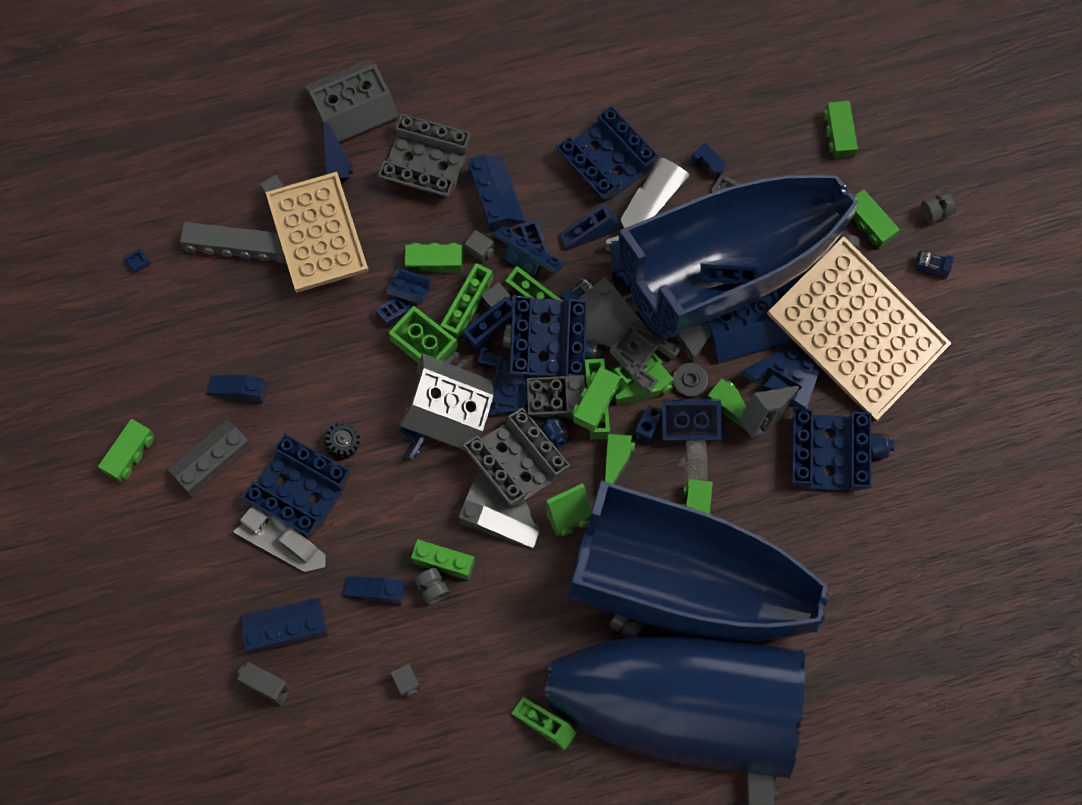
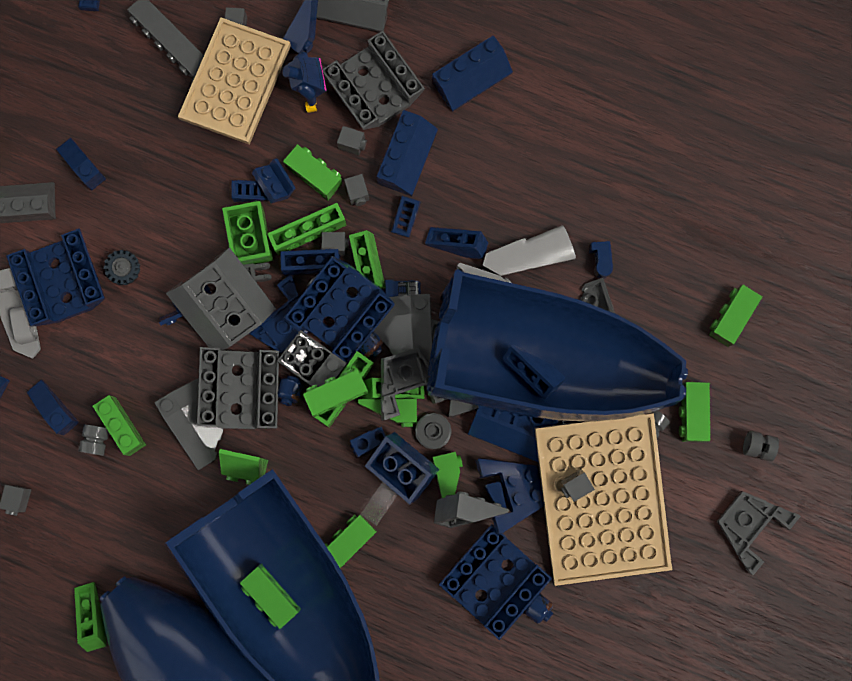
camera: 35 degrees right, 10 degrees up
(373, 189) = (306, 78): none -> dark blue torso
(444, 213) = (351, 141): none -> dark grey brick
(495, 98) = (472, 73): none -> dark blue slope
(525, 254) = (387, 224): dark blue bracket -> none
(618, 455) = (321, 449): bright green slope -> none
(619, 149) = (535, 192): dark blue slope -> none
(673, 591) = (270, 596): none -> bright green brick
(833, 328) = (576, 485): none -> dark grey brick
(934, 264) = (716, 491): dark blue leg -> none
(973, 272) = (745, 521): none -> dark grey wing

